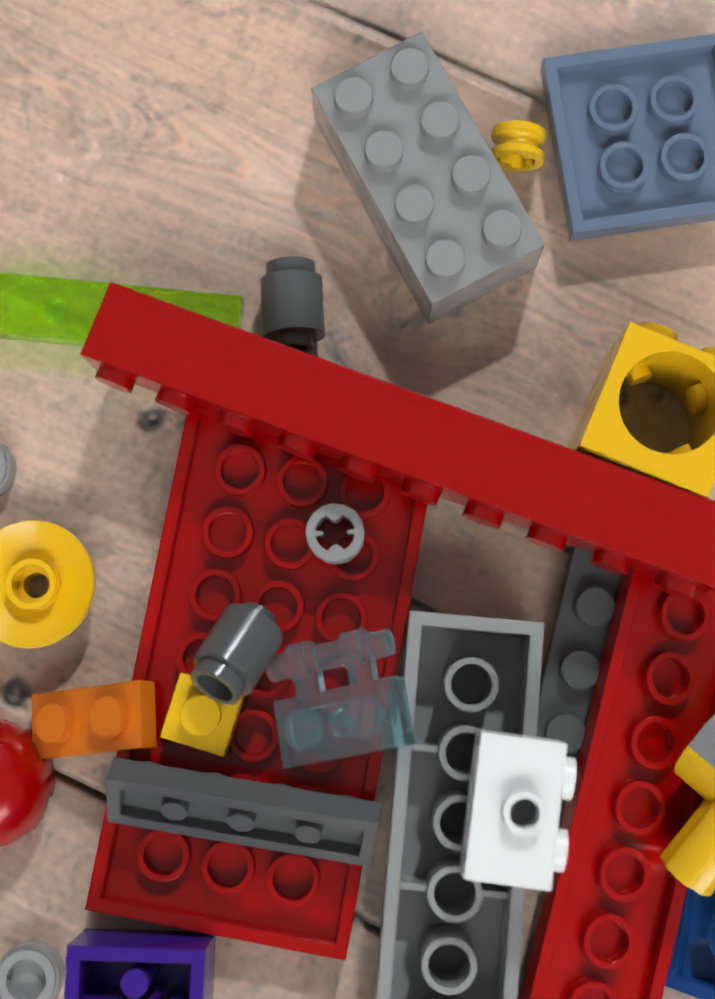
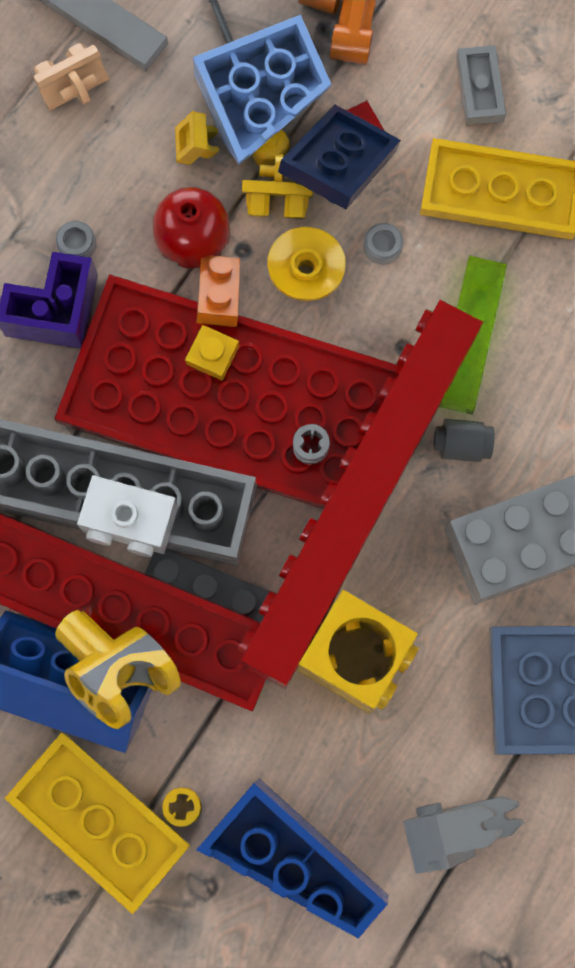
camera: 90 degrees right, 5 degrees down
(236, 652) = (246, 372): dark grey brick -> none
(242, 811) = (150, 367): dark grey plate -> none
(344, 720) = (195, 430): clear light blue plate -> none
(518, 145) = (557, 601): yellow bush -> none

